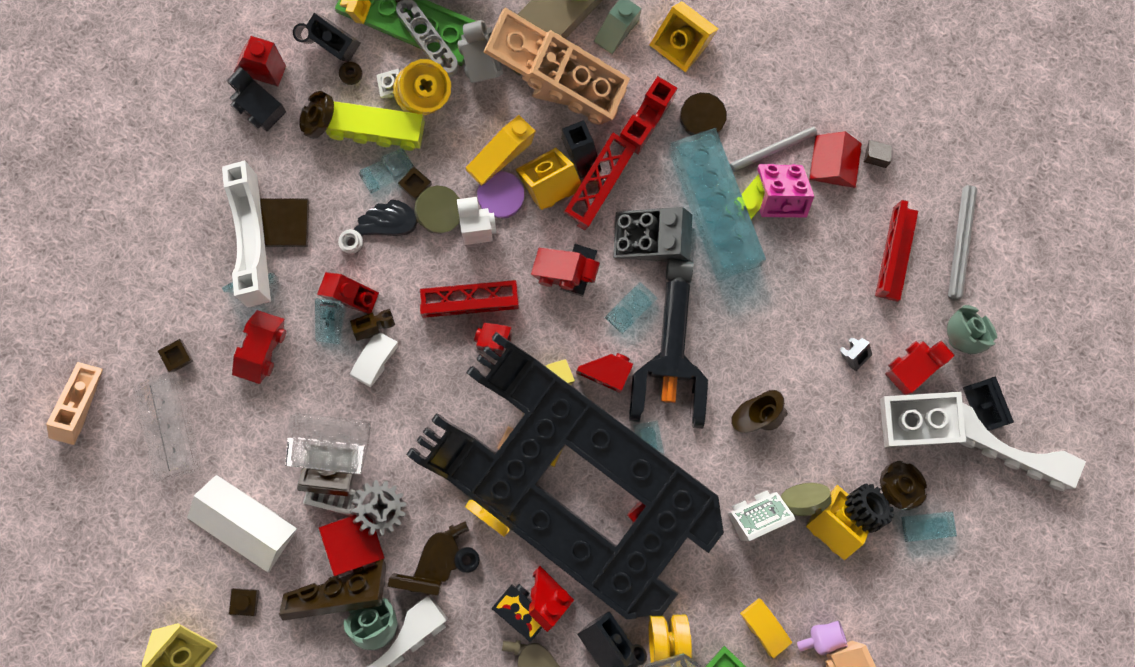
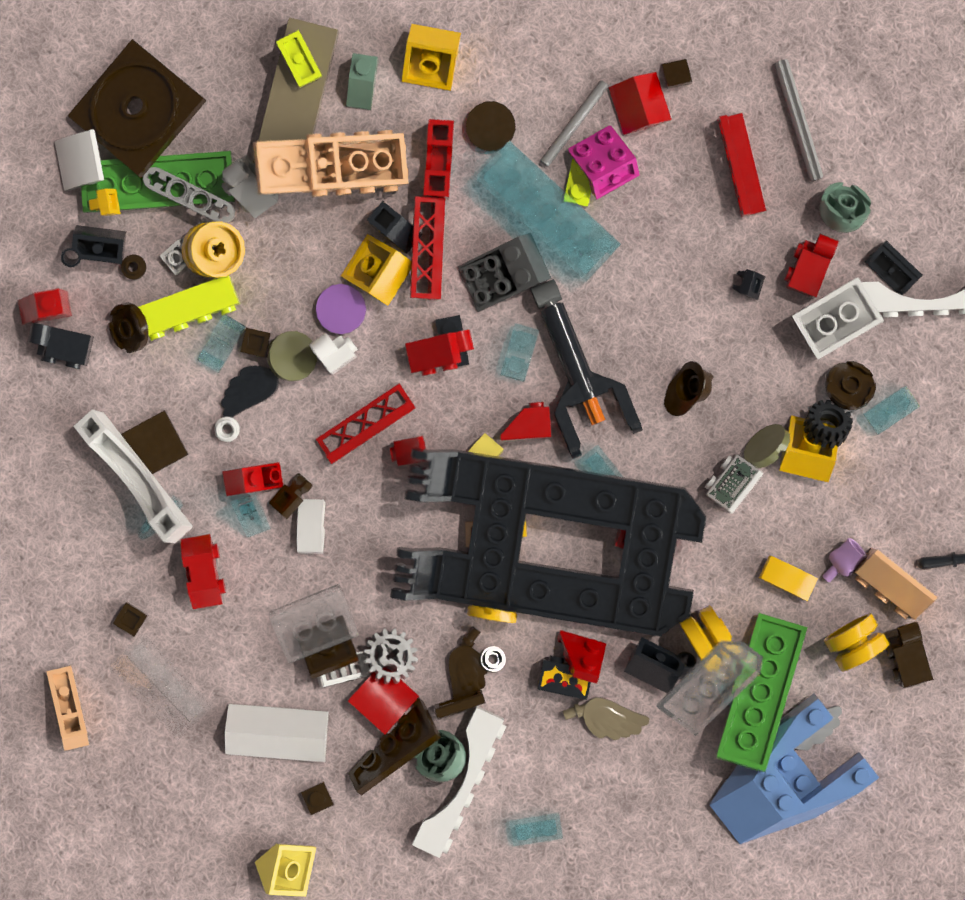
camera: 15 degrees left, 10 degrees up
(501, 150) = (319, 269): yellow slope -> none

